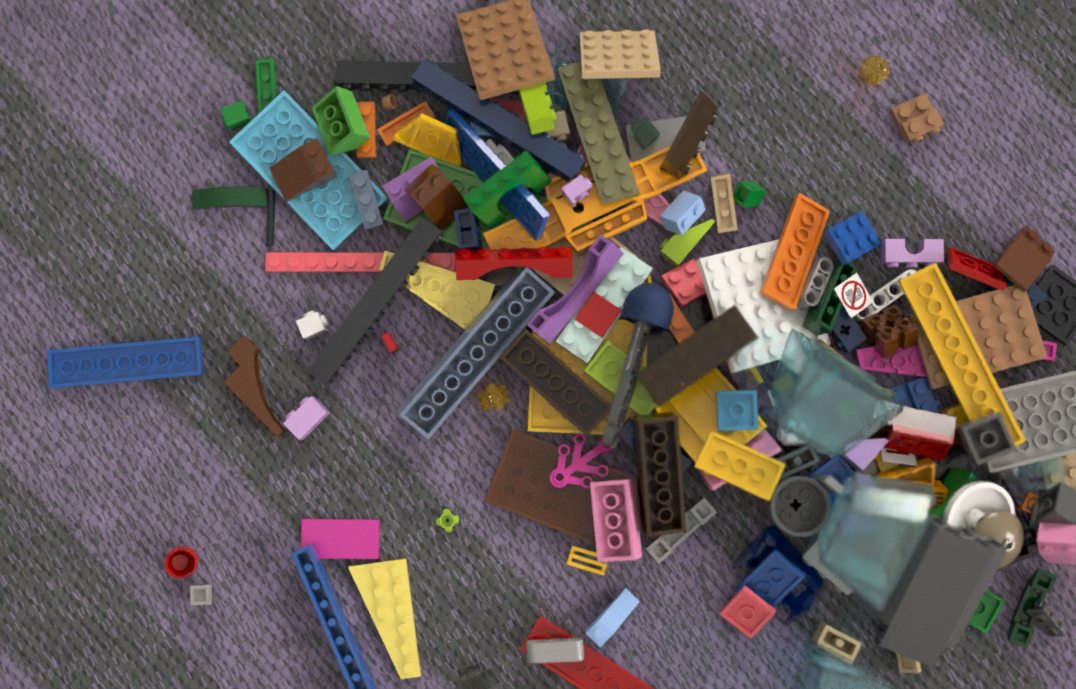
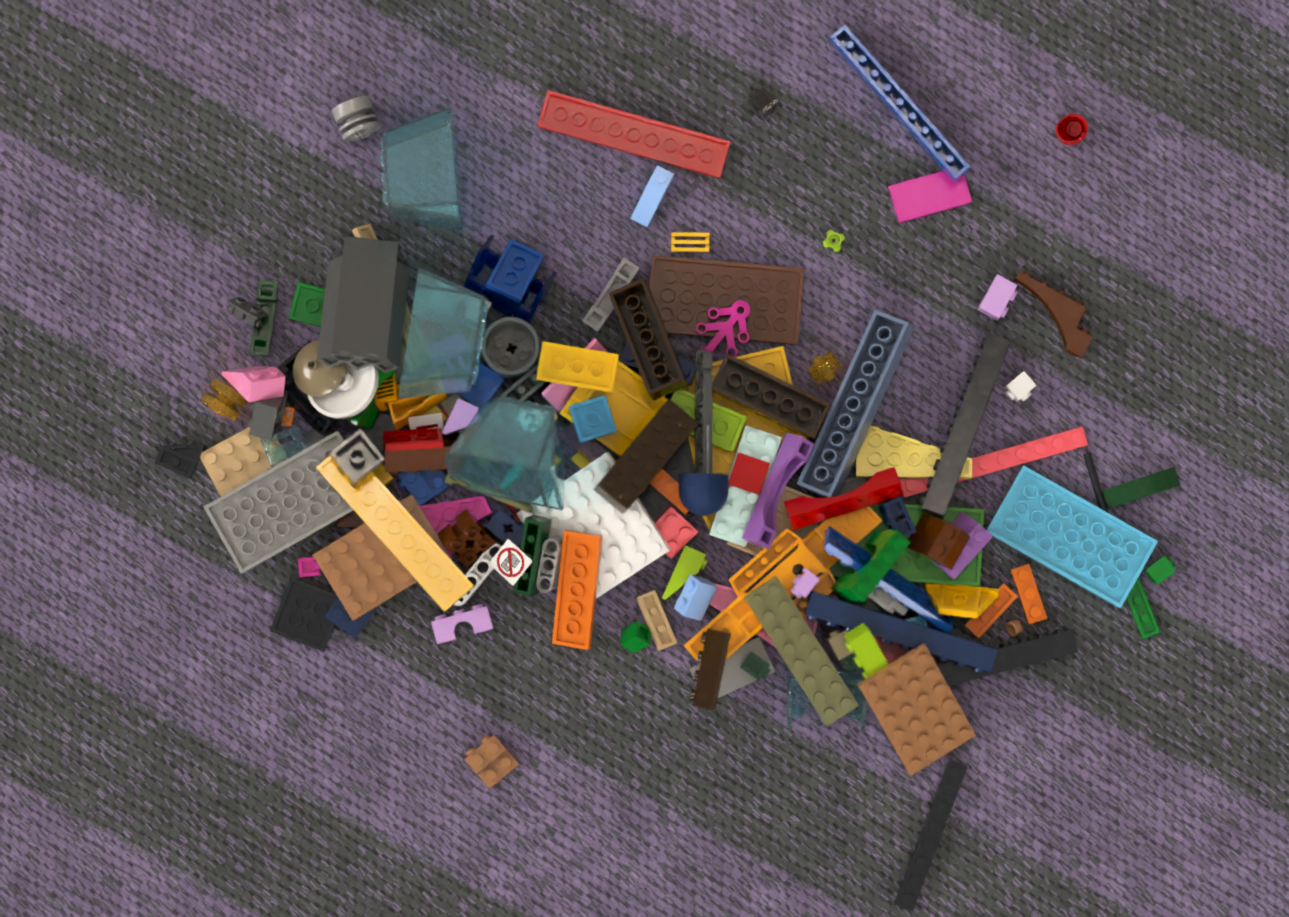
camera: 155 degrees right, 0 degrees up
(125, 362) = (1188, 299): blue plate -> none
(201, 594) = (1044, 105): light grey plate -> none
(302, 170) = (1075, 532): reddish brown slope -> none
(340, 121) = (1054, 591): bright green slope -> none
(366, 200) = (1005, 522): sand blue plate -> none
(389, 602) = (865, 149): light yellow wing -> none
(390, 343) = (939, 391): red tile -> none
(555, 650) = (698, 150): light grey beam -> none
(616, 520) = (676, 285): bright pink slope -> none
(619, 54) = (802, 734): tan plate -> none
(747, 612) = (528, 237): coral plate -> none
(829, 483) = (490, 374): light grey tile -> none
(836, 641) = (438, 234): tan brick -> none
(852, 238) = (525, 619): blue plate -> none
(874, 70) = (554, 794): clear yellow brick -> none
(975, 268) = (398, 624): red tile -> none
(1024, 258) = (356, 645): reddish brown slope -> none

